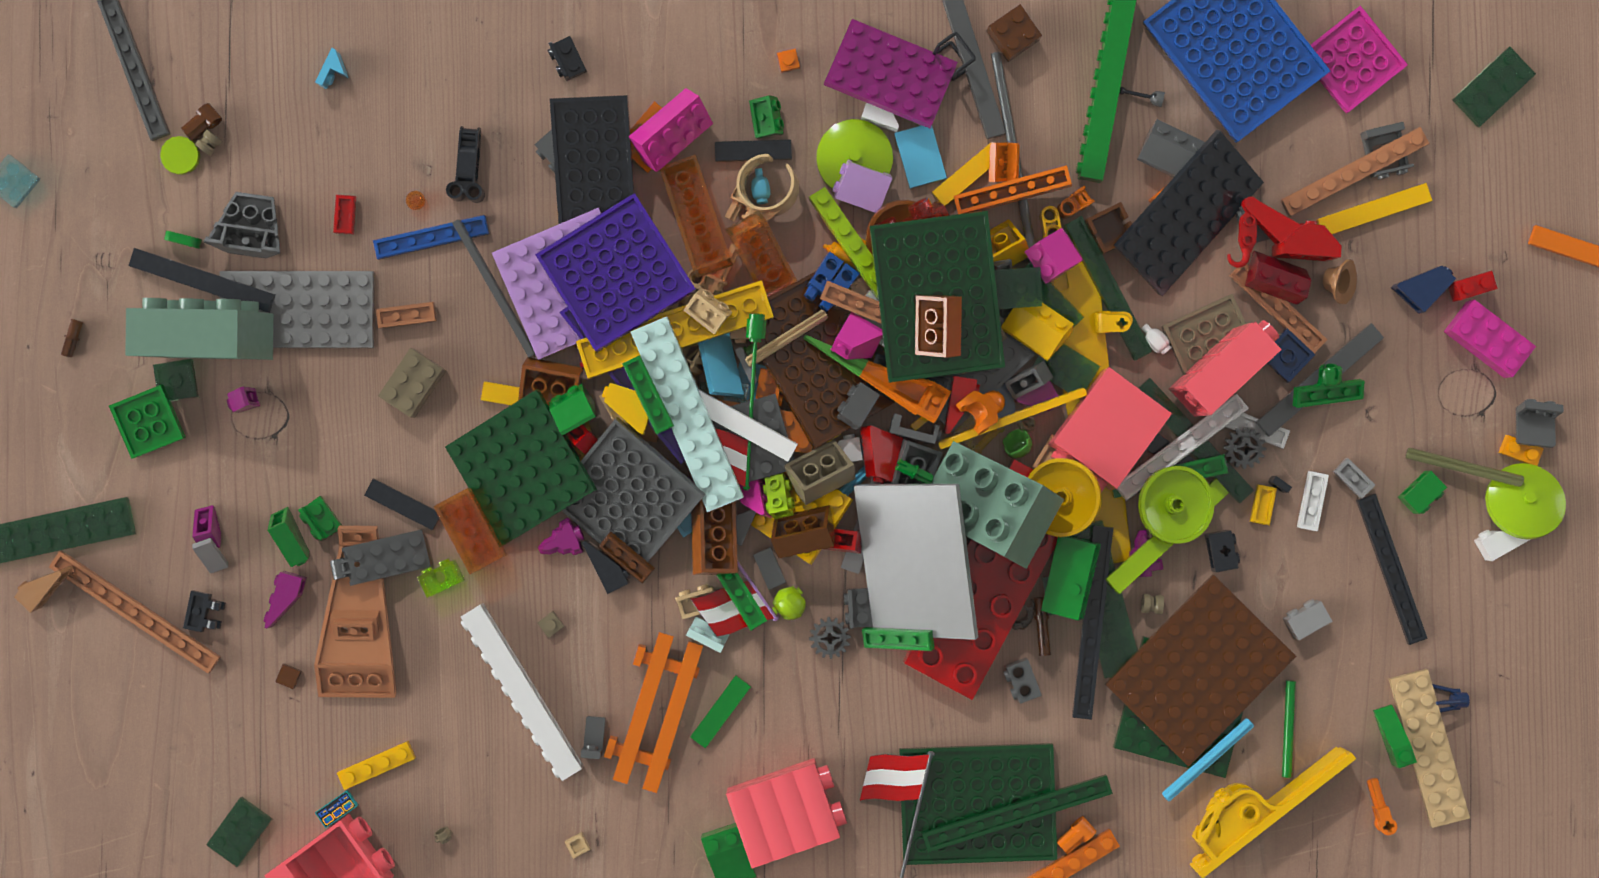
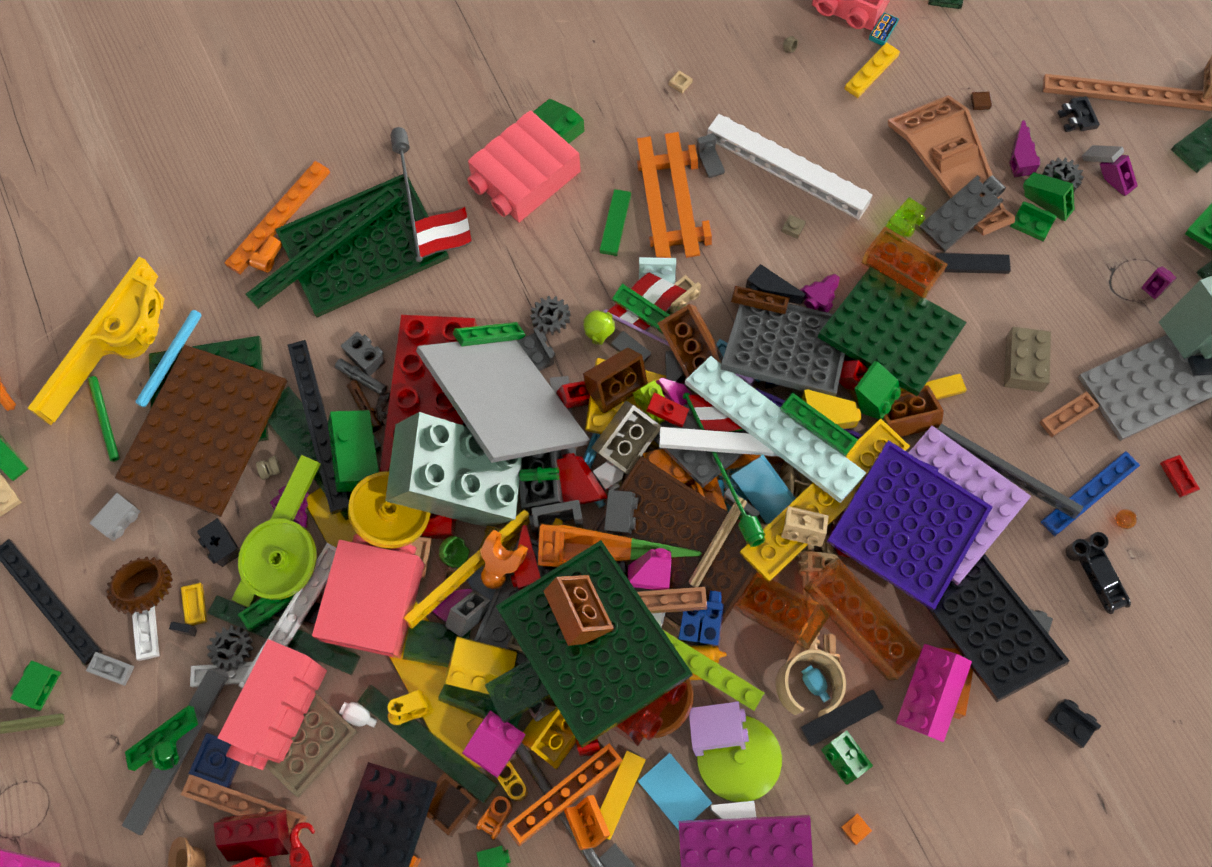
camera: 155 degrees right, 20 degrees down
(256, 558) = (1064, 171): none -> dark grey gear
(772, 478) = (667, 410): none -> red plate
(1031, 654) = (355, 373): none -> dark grey pin
(1312, 553) = (133, 574): none -> reddish brown gear

